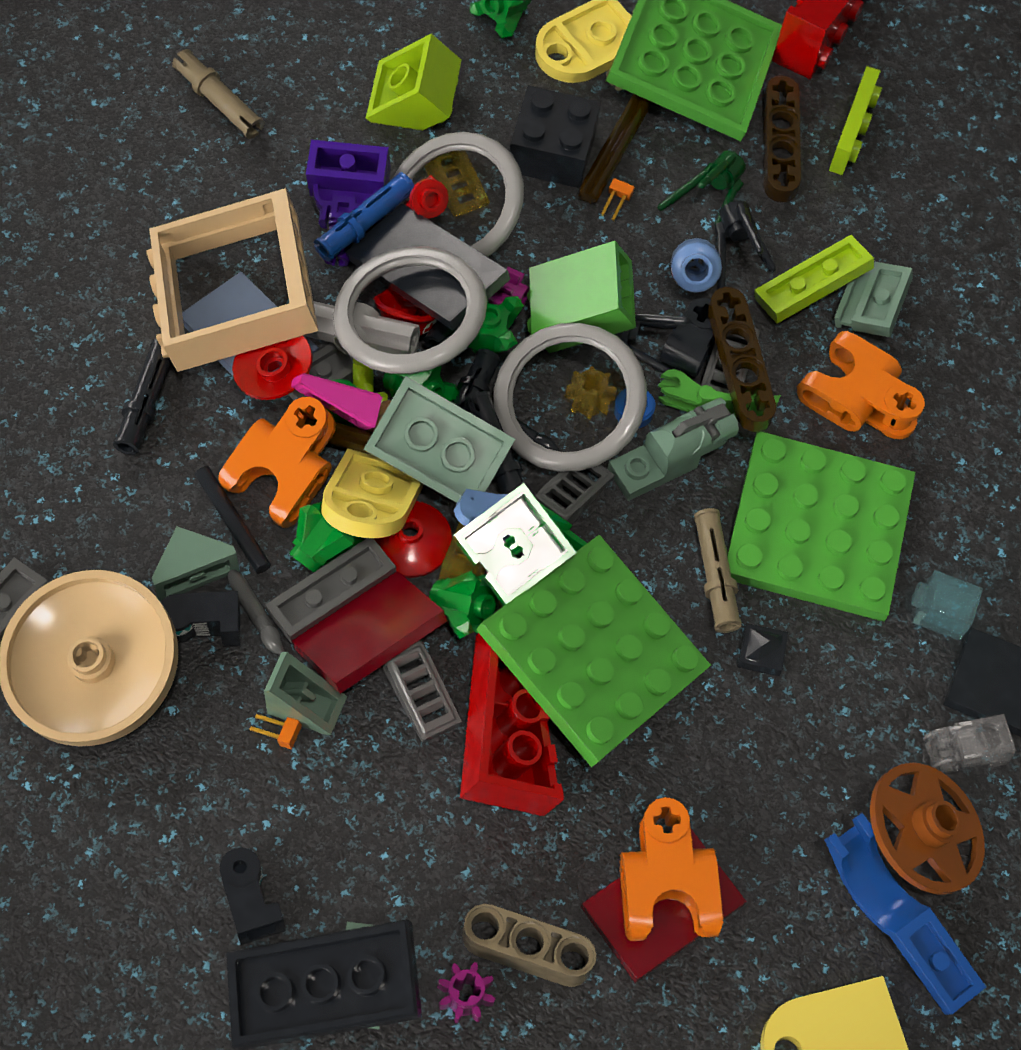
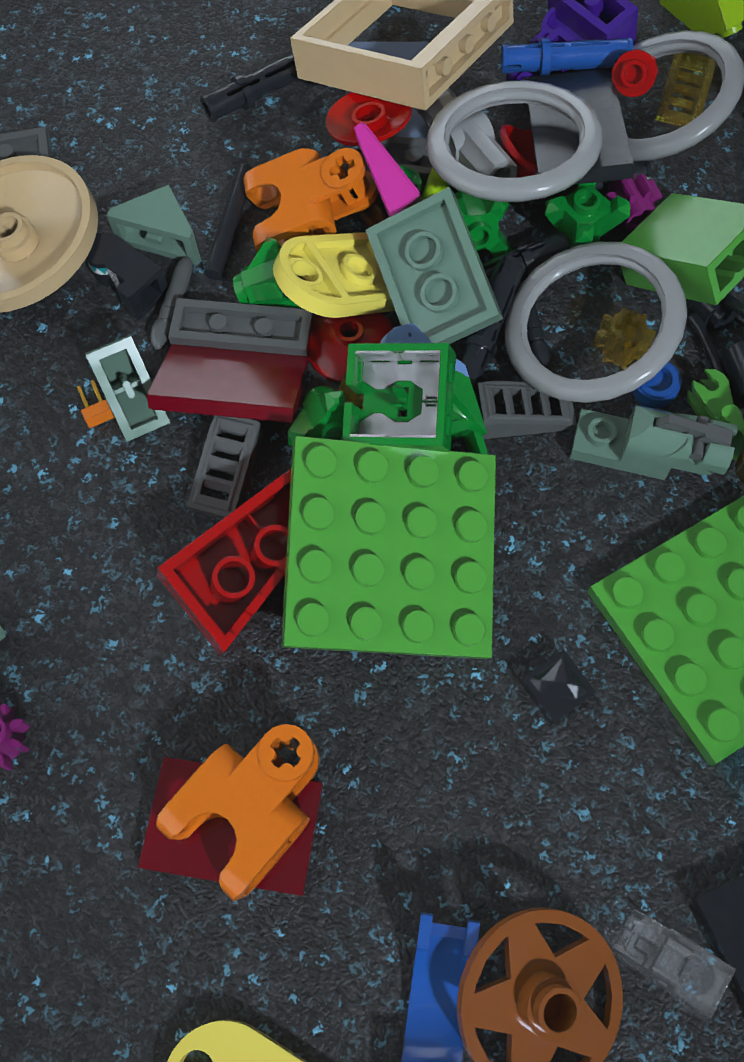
camera: 55 degrees right, 5 degrees up
(552, 940) = (62, 732): dark tan beam -> none
(720, 585) = (553, 622): dark tan pin -> none

